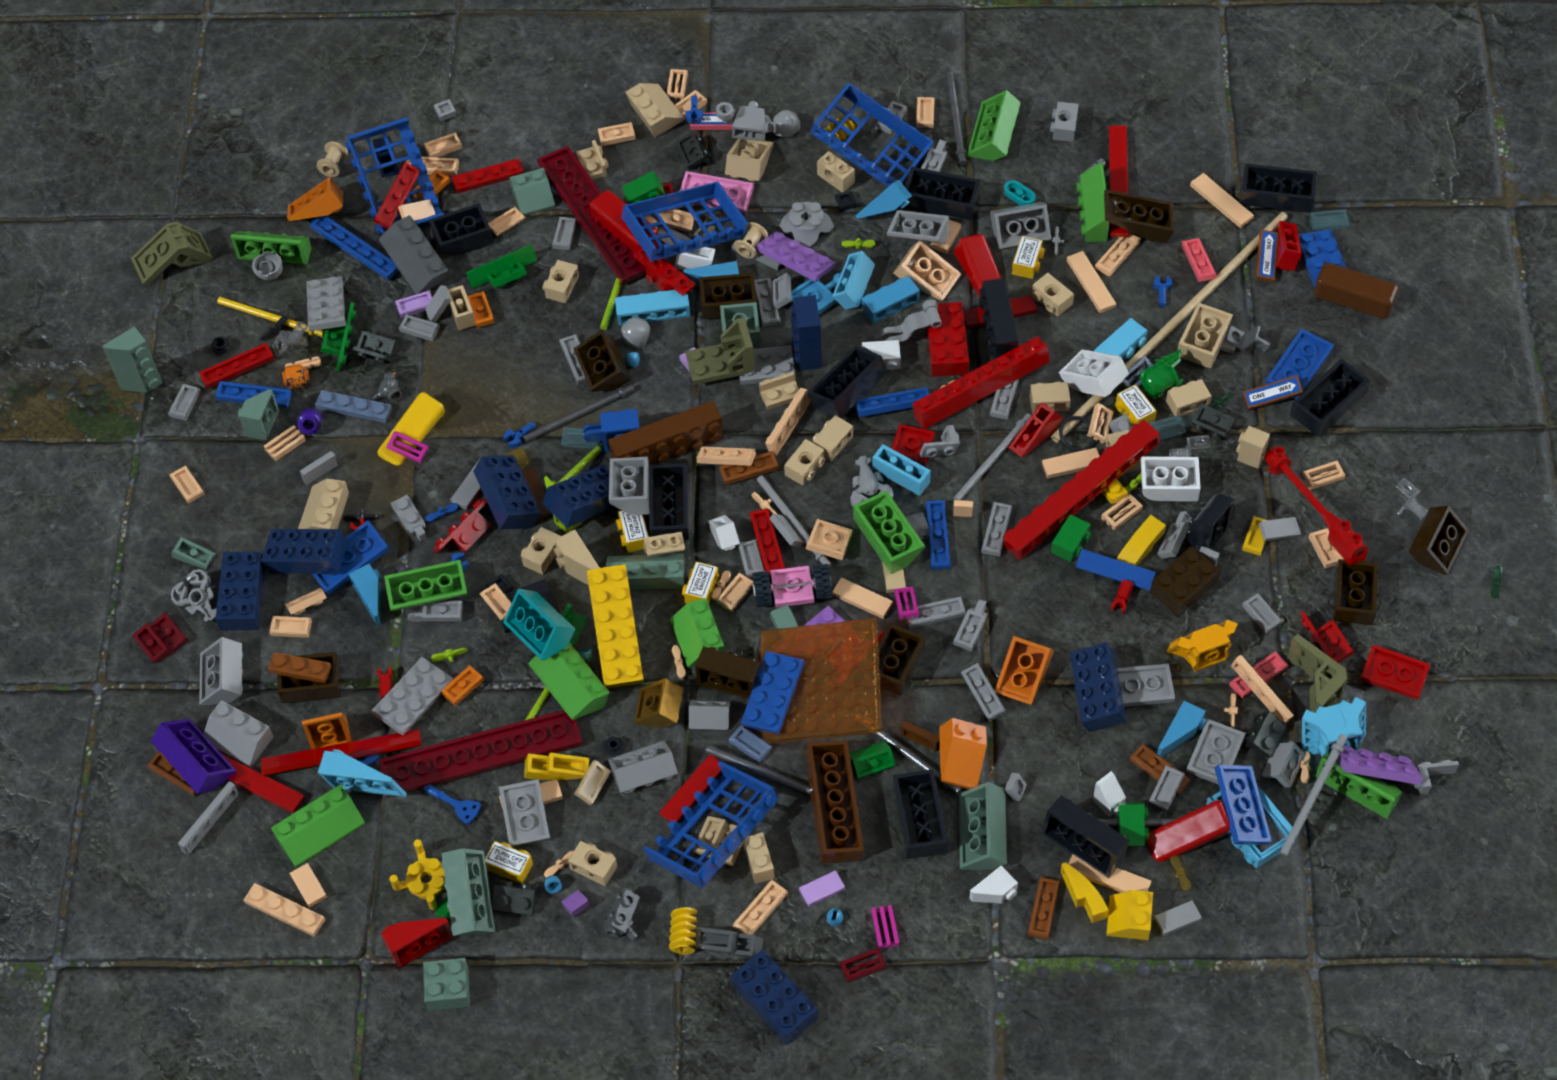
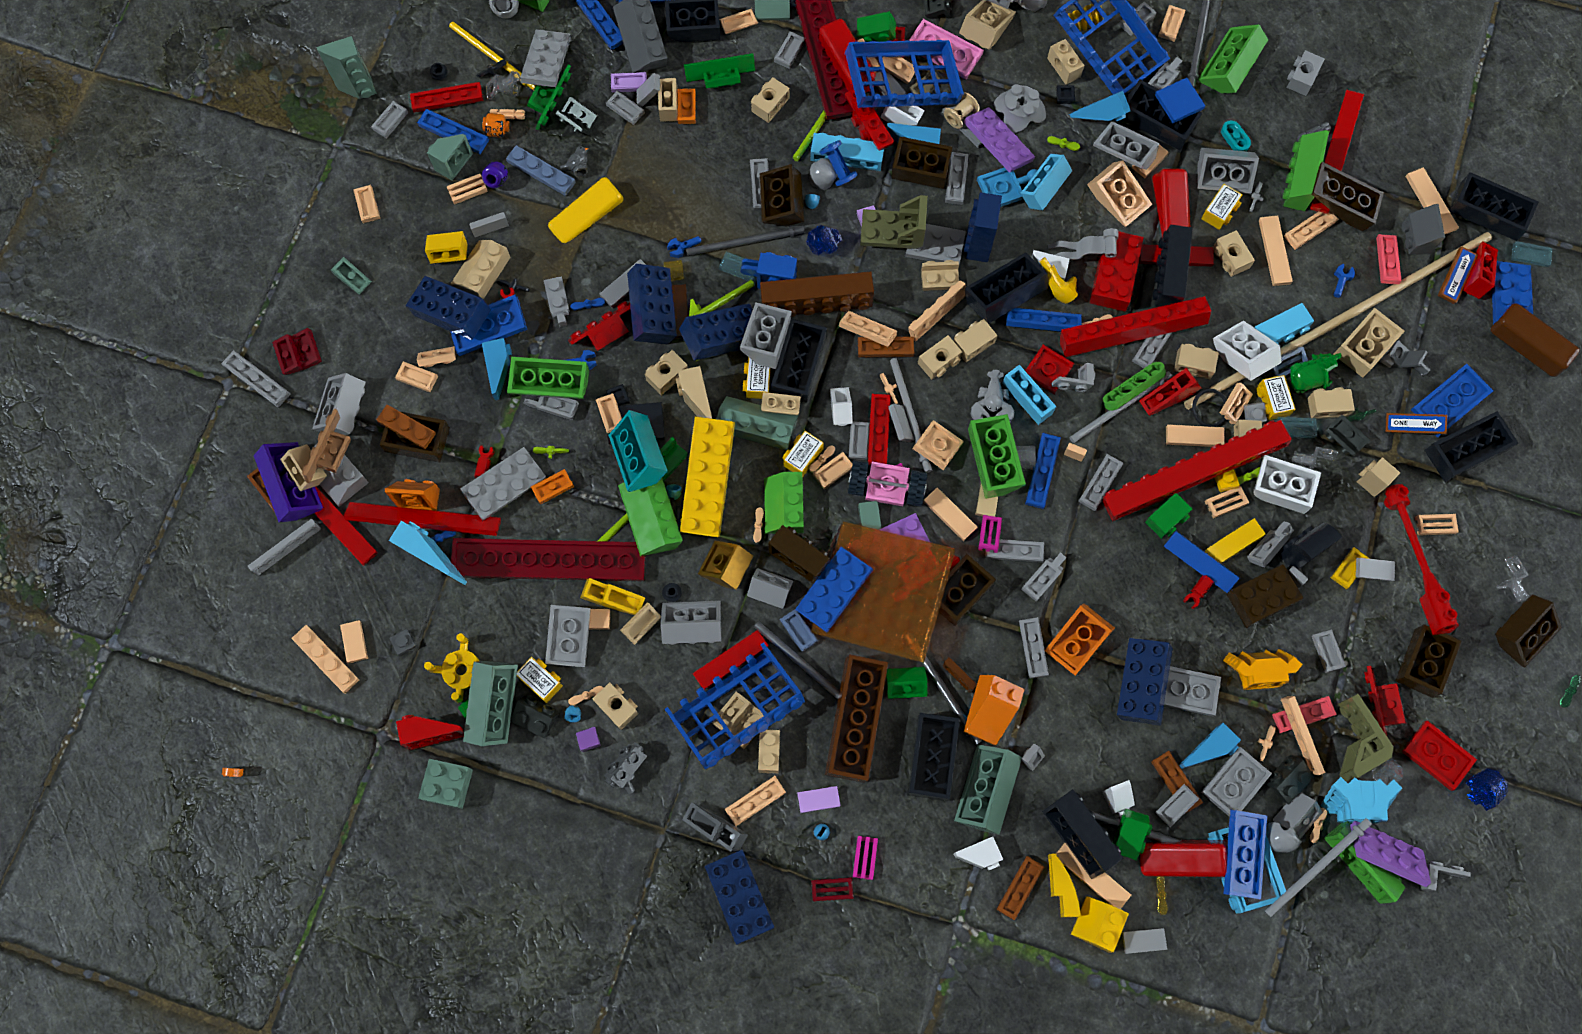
camera: 15 degrees right, 15 degrees up
(126, 675) = (255, 379): none -> light grey tile
(198, 597) = (341, 322): light grey animal -> none
(206, 735) = (294, 462): none -> tan brick
(224, 1040) = (232, 772): none -> orange tile
(230, 708) = (329, 449): none -> medium nougat bracket
(240, 591) = (380, 328): dark blue brick -> none
(283, 499) = (446, 247): none -> yellow brick
(318, 826) = (379, 587): bright green slope -> none
(358, 871) = (403, 642): none -> dark grey plate
(421, 453) = (587, 238): dark pink tile -> none
(458, 805) = (512, 606): blue piece -> none
(647, 317) = (838, 163): none -> blue hose
(656, 389) = (823, 239): none -> clear blue hair
(681, 930) = (676, 801): yellow piece -> none
(732, 312) = (927, 186): sand green brick -> none
(782, 290) = (974, 172): light grey tile -> none
(890, 299) = (1075, 211): dark azure brick -> none
(902, 370) = (1060, 289): none -> yellow animal
(955, 174) = (1179, 100): none -> blue tile
(999, 435) = (1116, 397): none -> bright green beam
(1221, 225) = (1423, 230): none -> dark grey slope
(1275, 785) = (1282, 840): none -> light grey hair
(1324, 550) = (1411, 604): light nougat plate -> none
(1449, 686) = (1487, 788): none -> clear blue hair

